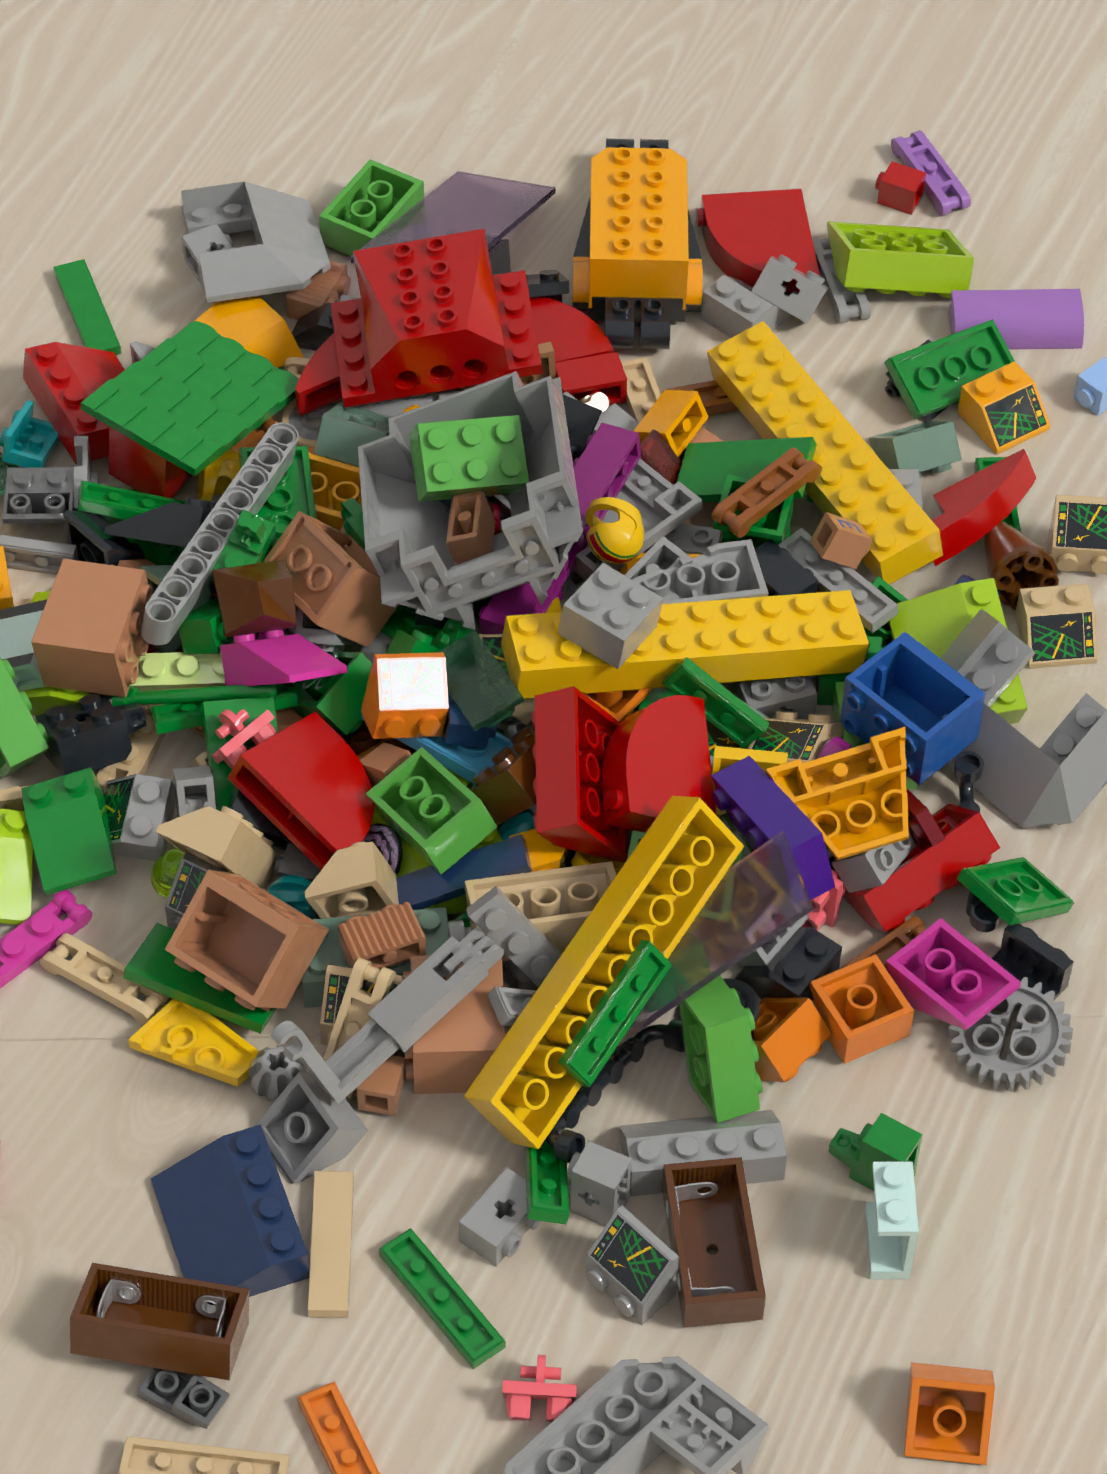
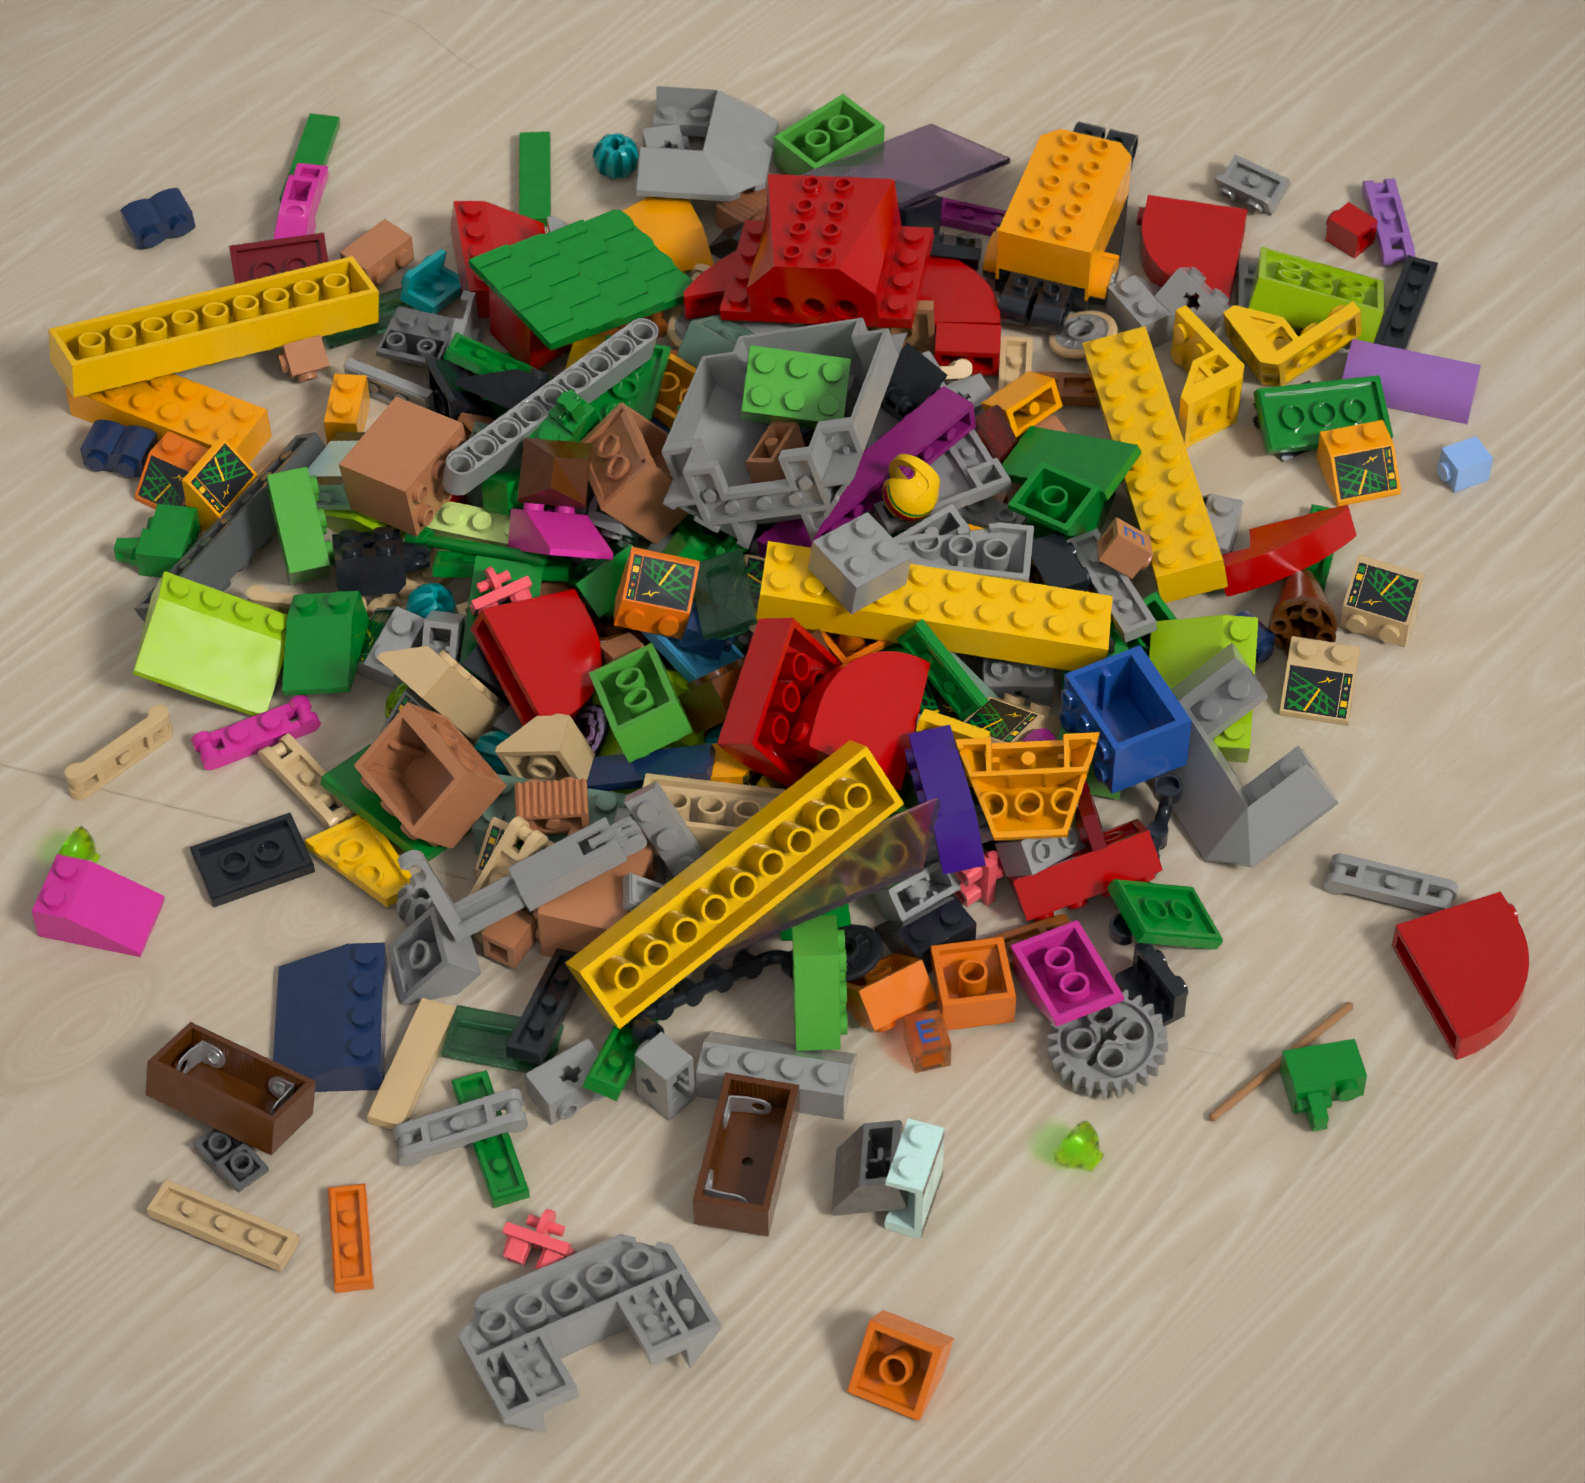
camera: 20 degrees right, 0 degrees up
(77, 1074) = (252, 859): none -> black tile
(161, 759) = (430, 597): none -> teal piece
(162, 269) = (615, 156): none -> teal piece
(411, 1294) = (459, 1126): none -> light grey plate
(413, 1192) = (482, 1039): none -> clear green piece
(450, 1146) = (544, 1011): none -> black plate
(542, 254) = (970, 217): none -> magenta tile
(615, 1013) = (727, 924): green tile -> none
(632, 1266) = (663, 1156): slope -> none
(697, 329) = (1092, 322): none -> light grey wheel
(766, 491) = (1067, 484): dark orange plate -> none
(791, 165) = (1252, 184): none -> light grey bracket
(833, 346) = (1214, 379): none -> yellow bracket
(837, 1077) = (927, 1040): none -> clear orange brick
(840, 1224) = (863, 1170): none -> flat silver slope
(869, 311) = (1277, 352): none -> yellow bracket
(881, 1142) = (936, 1106): green hinge -> none
(919, 447) = (1258, 482): sand green slope -> none
(982, 243) = (1406, 303): none -> black plate
(1027, 1144) = (1079, 1148): none -> clear neon green brick

